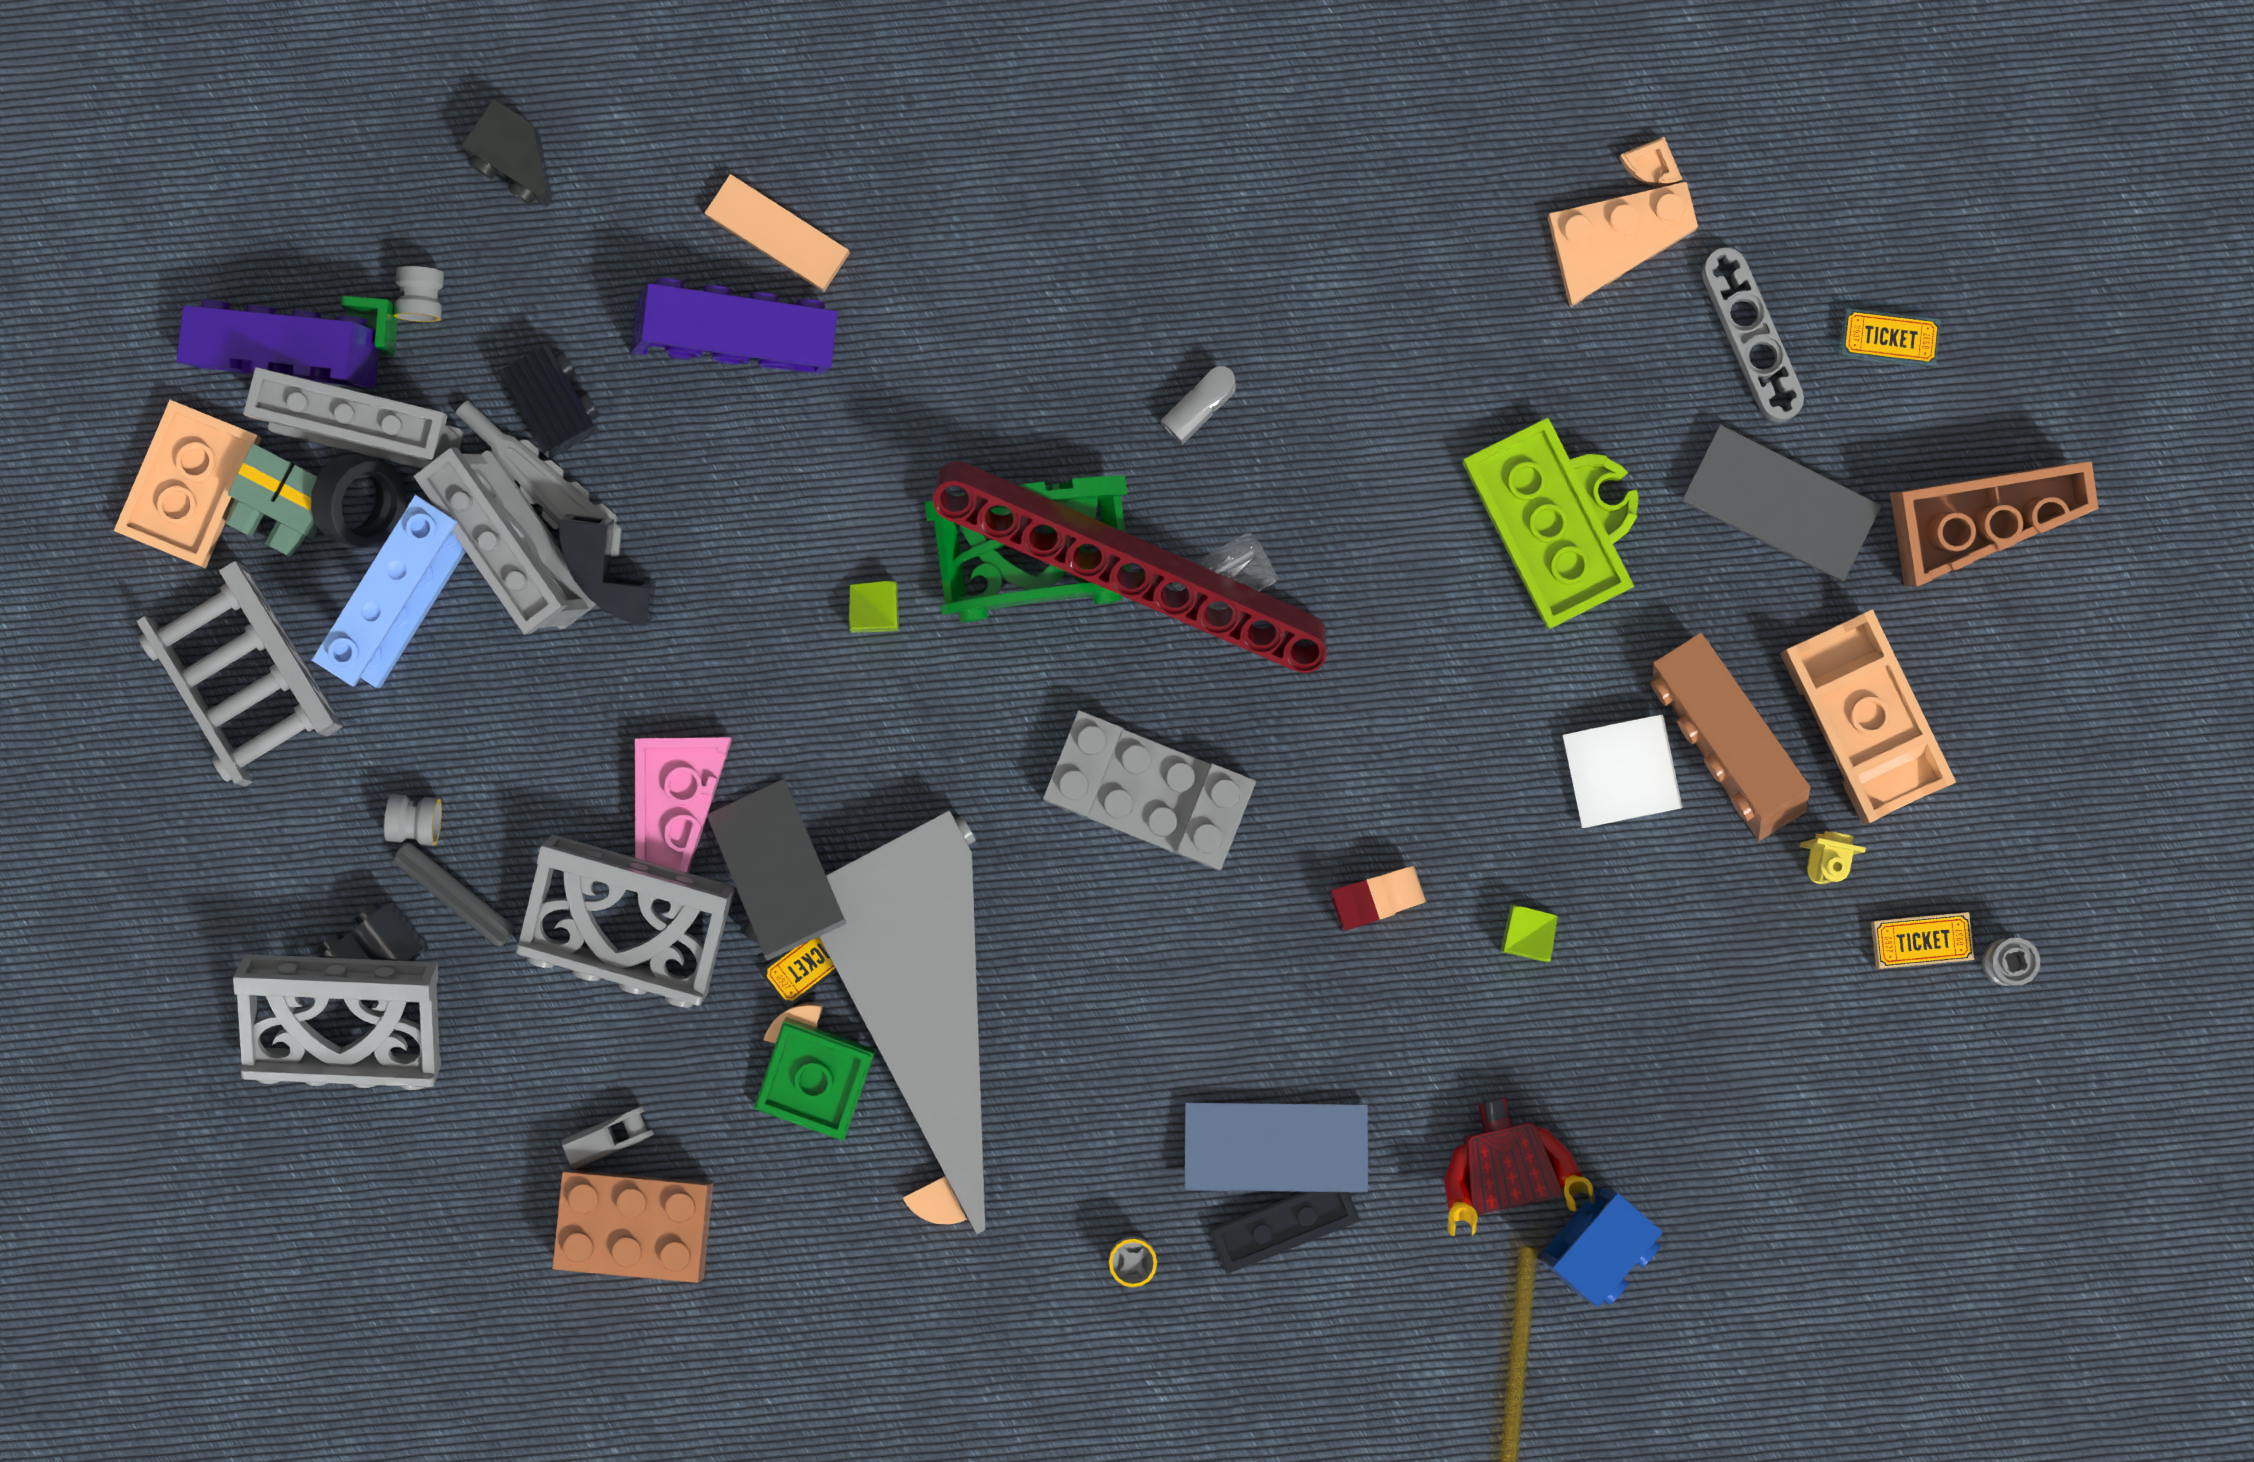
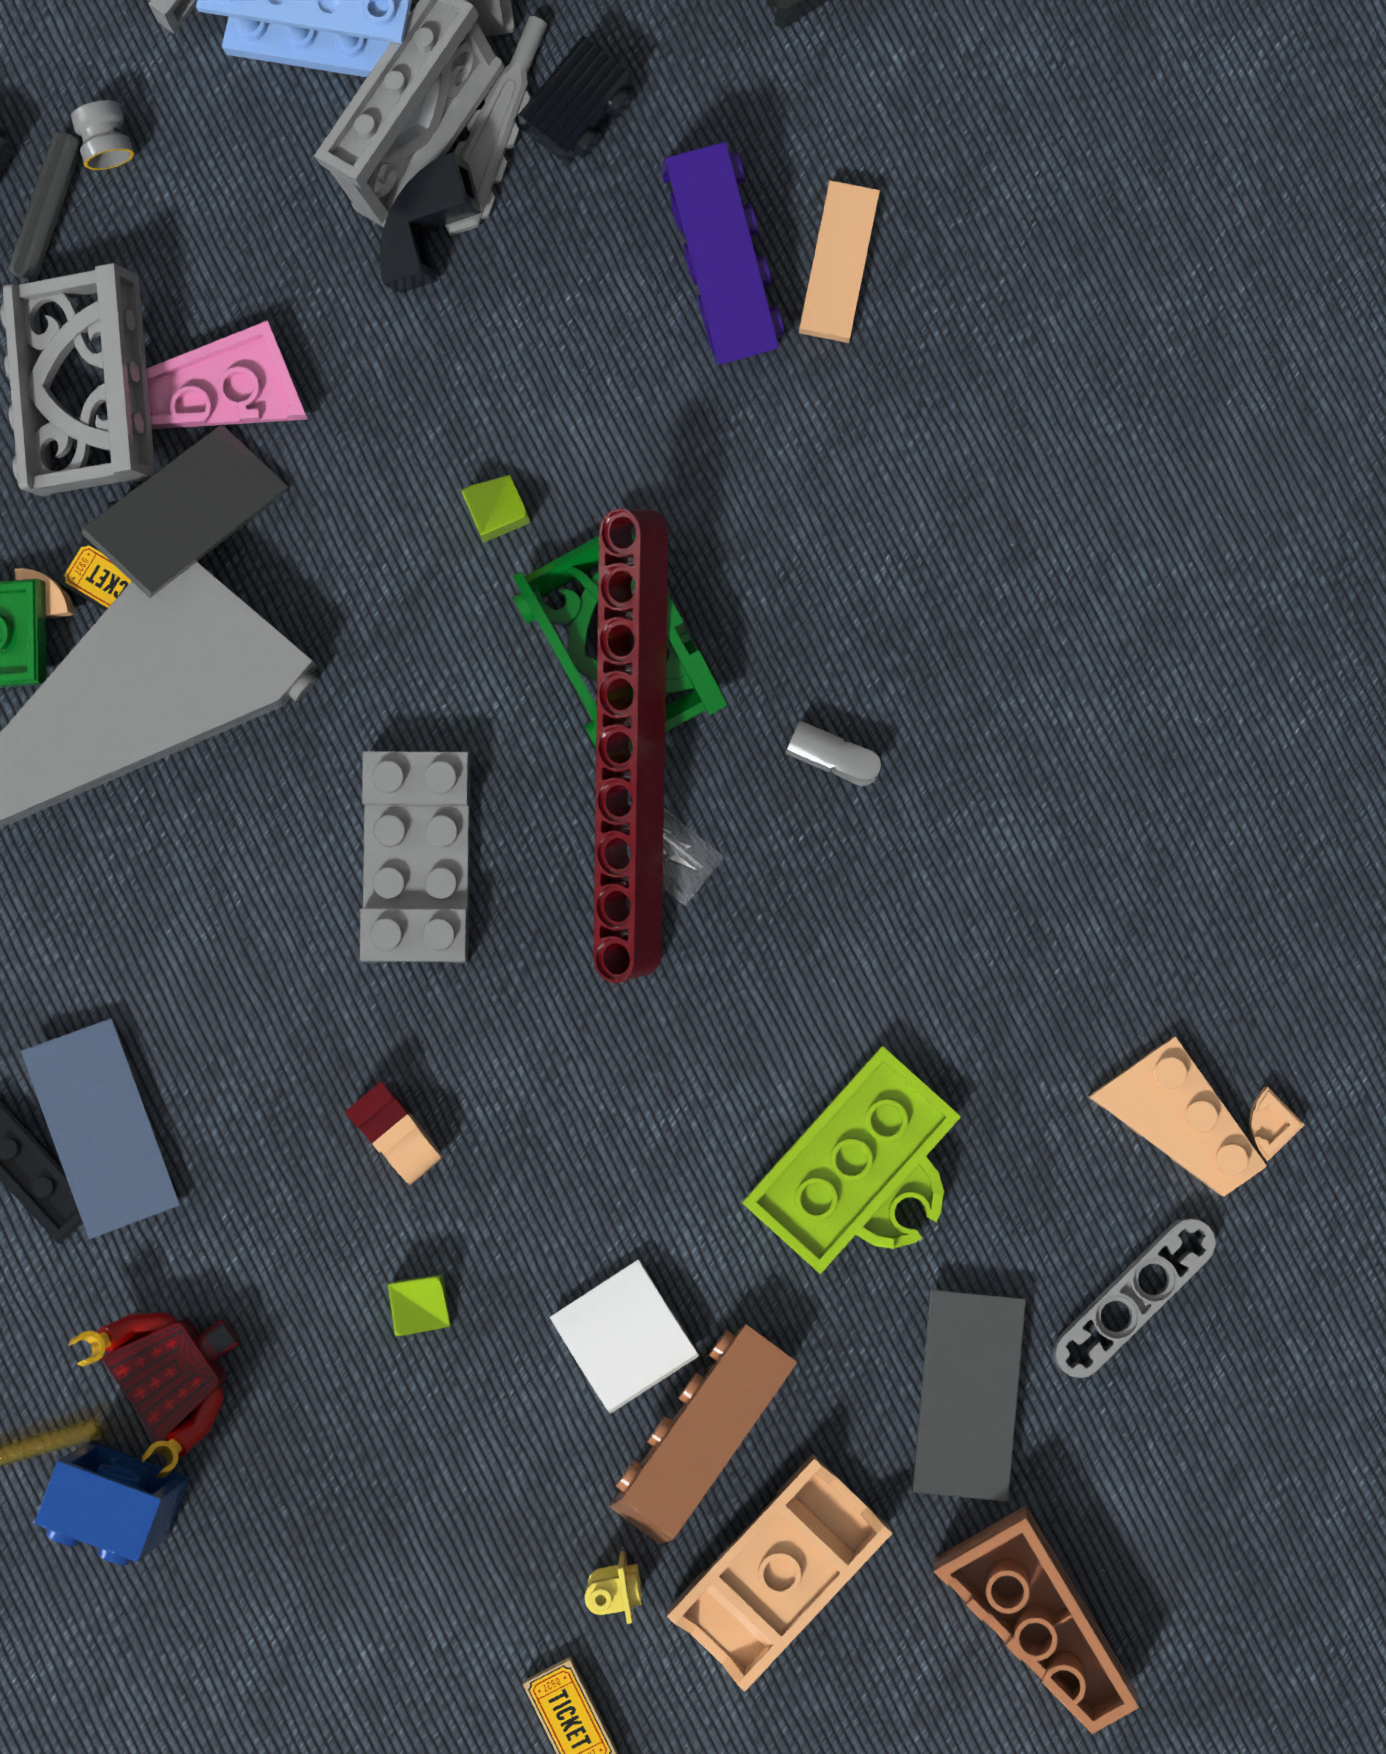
camera: 70 degrees right, 0 degrees up
(1889, 338) = (1188, 1443): tile -> none

